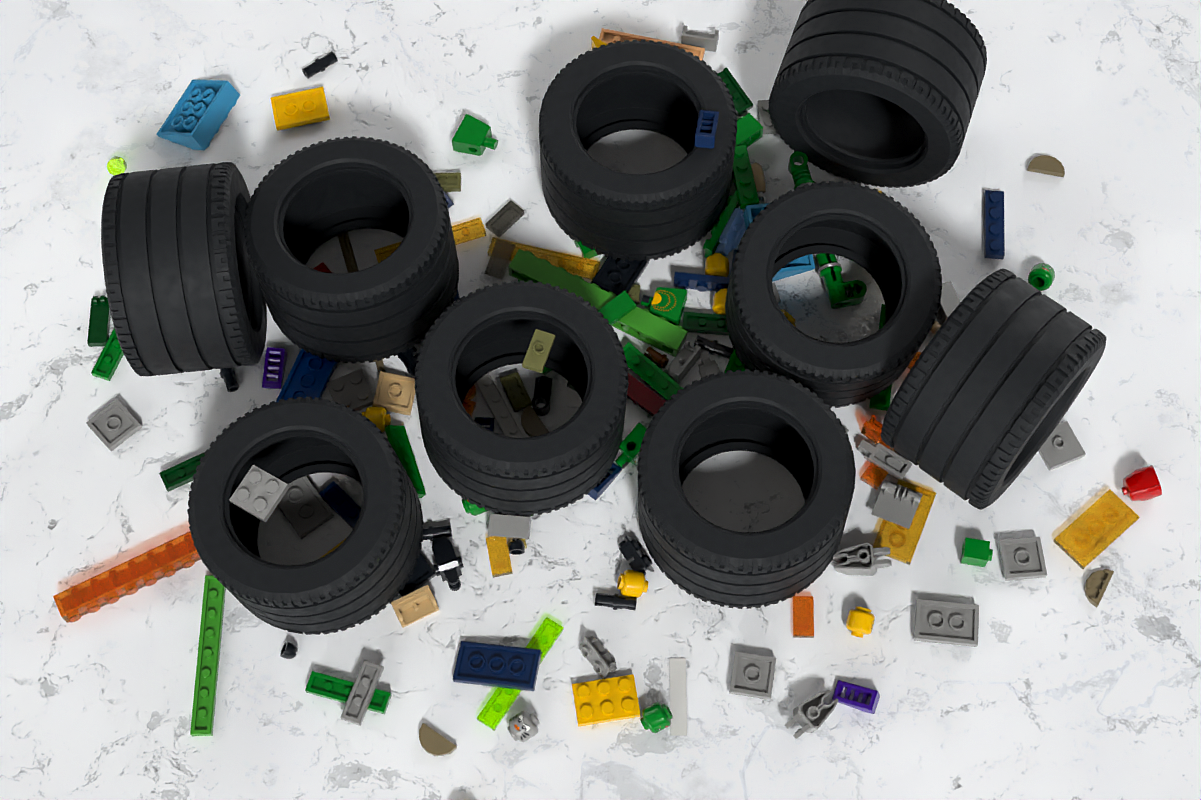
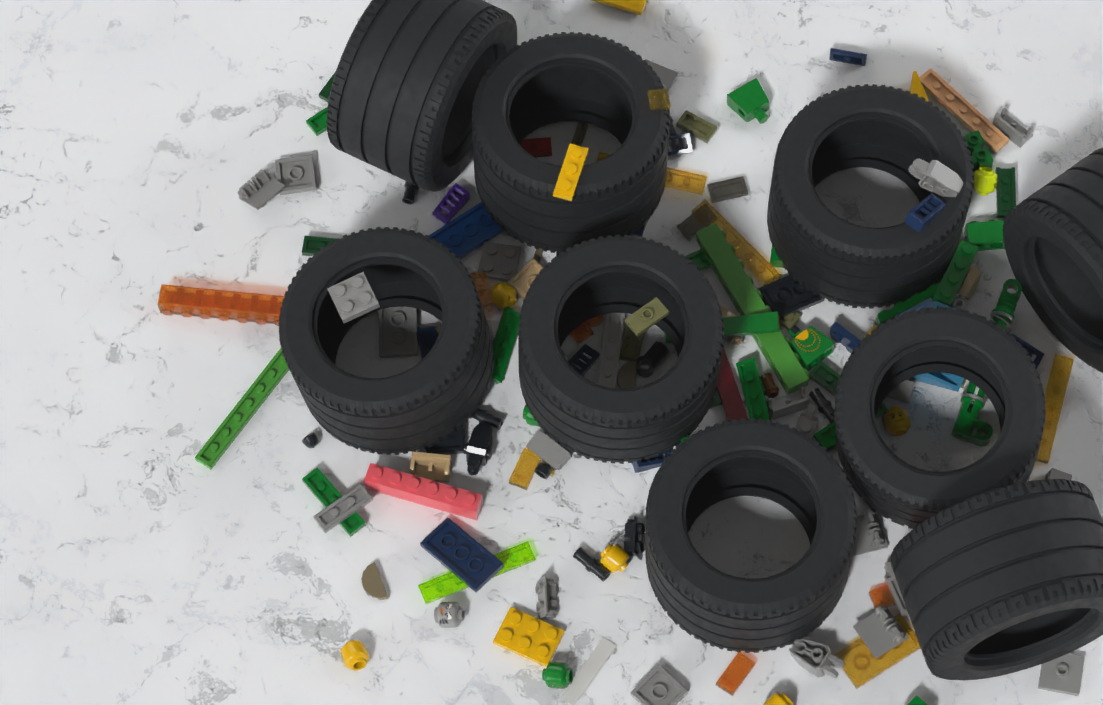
camera: 35 degrees right, 0 degrees up
(90, 457) = (261, 191): none -> light grey hinge
(383, 267) = (570, 172): none -> yellow plate
(415, 163) = (658, 99): none -> clear yellow tile
(424, 632) = (423, 491): none -> coral brick
(527, 56) = (848, 57): none -> dark blue slope
(696, 94) = (936, 177): none -> light grey hinge

